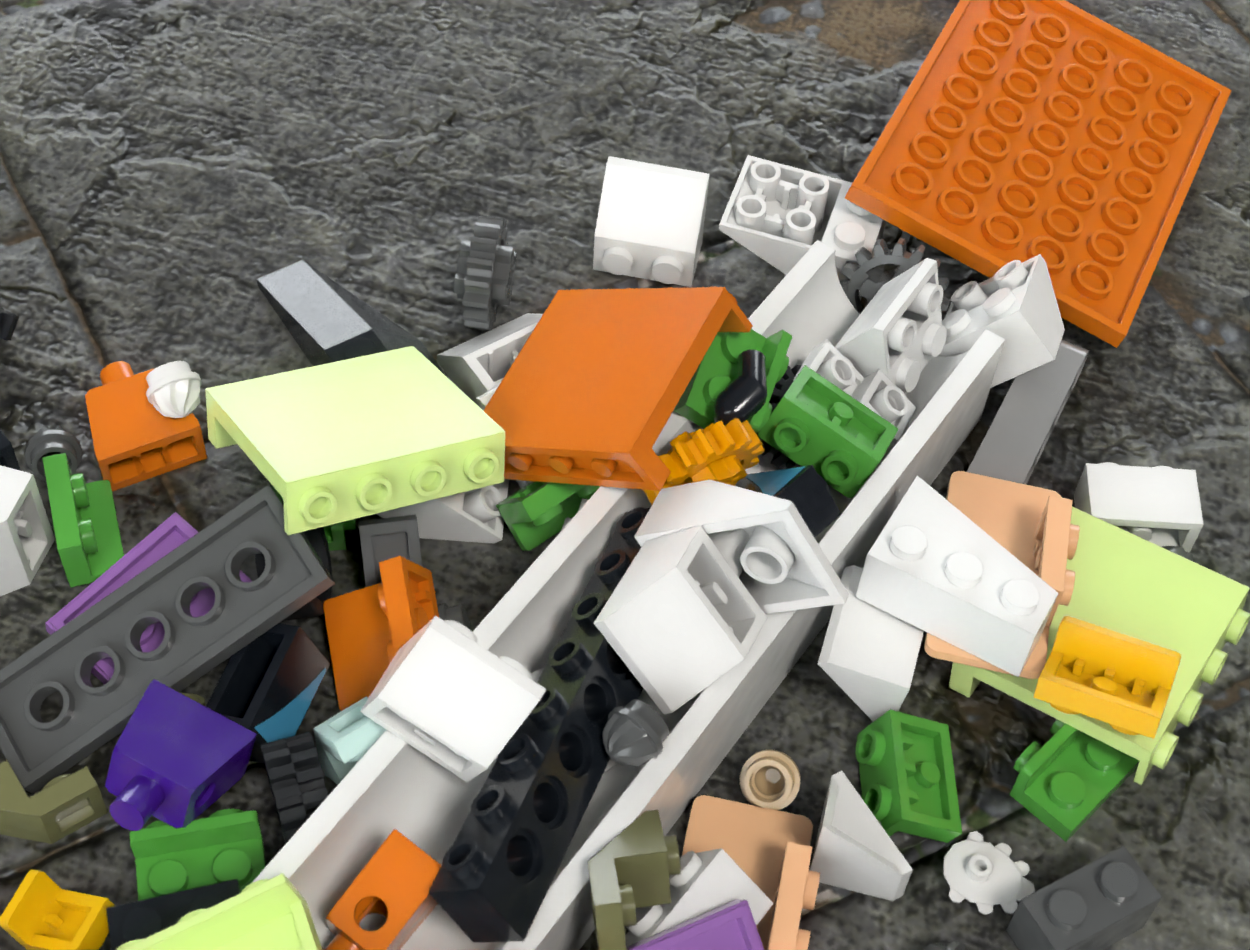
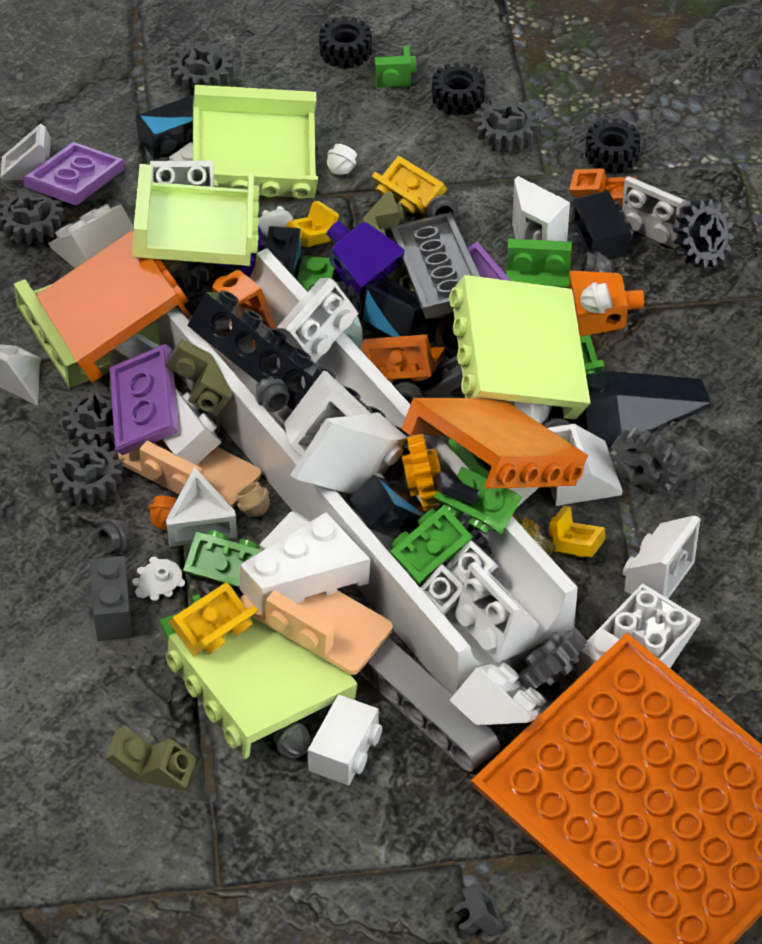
camera: 115 degrees right, 5 degrees down
(857, 910) = (160, 510): none -> orange plate

